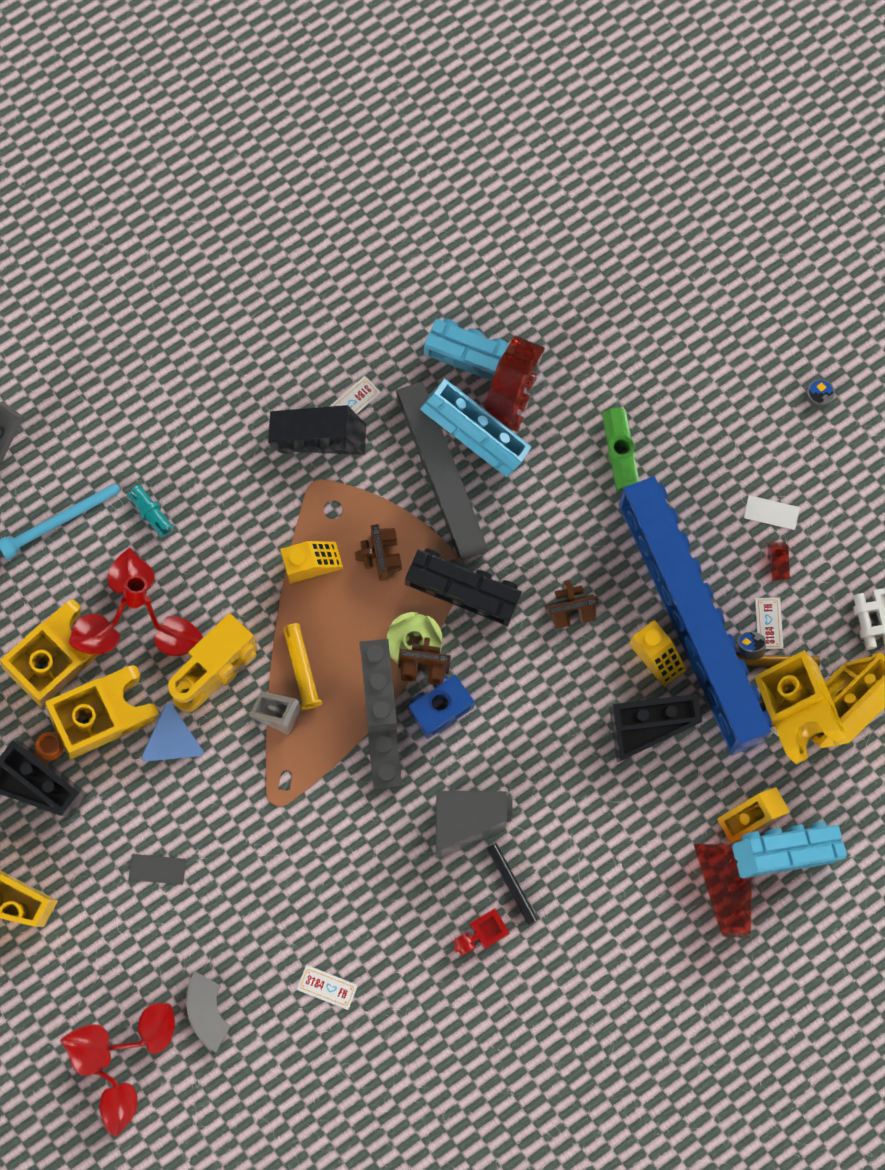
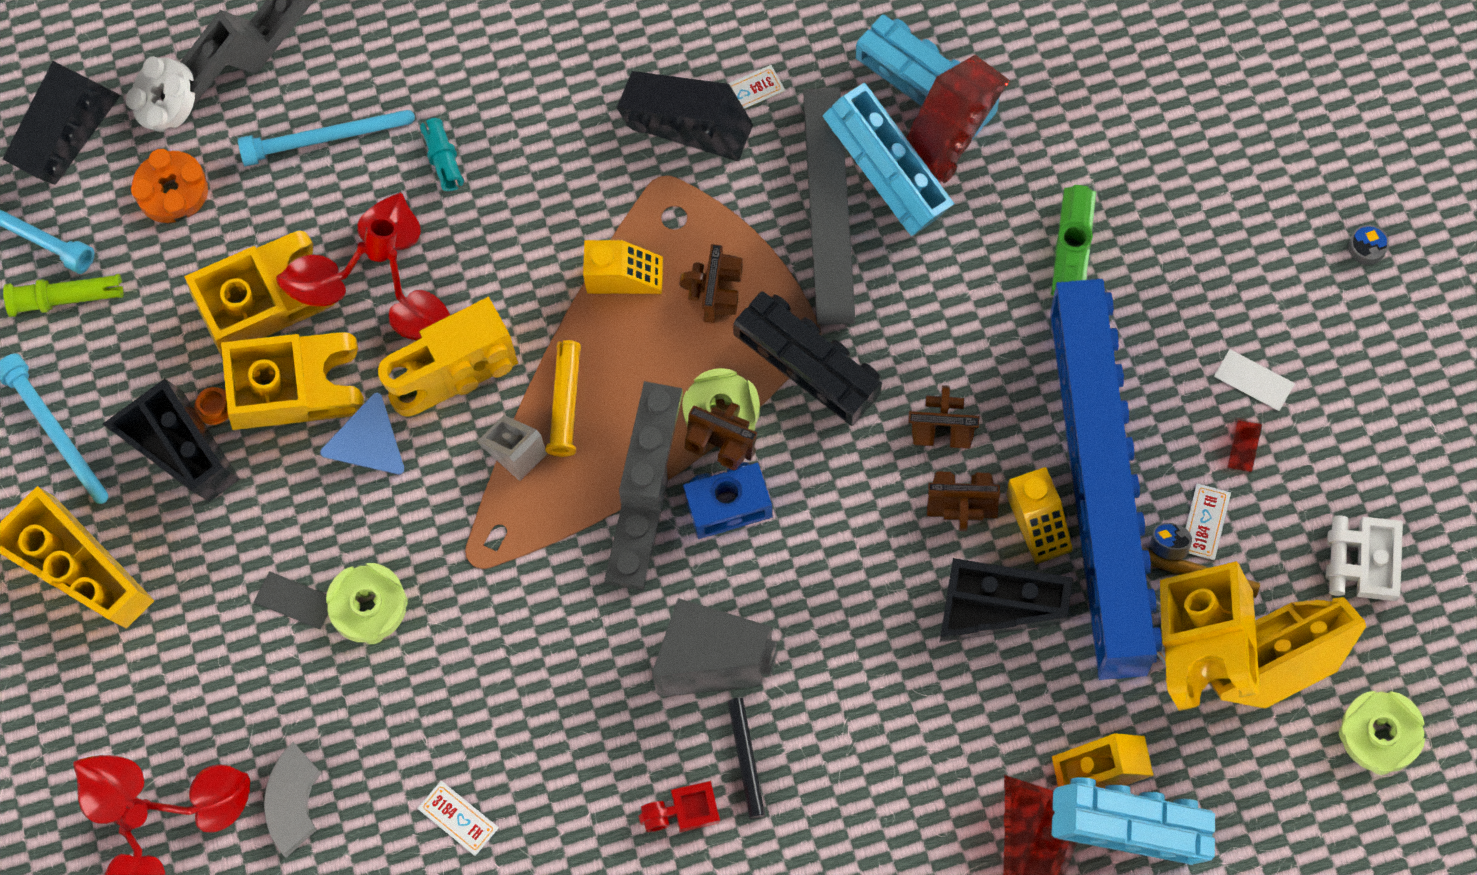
camera: 25 degrees right, 5 degrees down
(203, 841) = (371, 624): none -> yellowish green plate
(604, 659) = (963, 501): none -> reddish brown hips

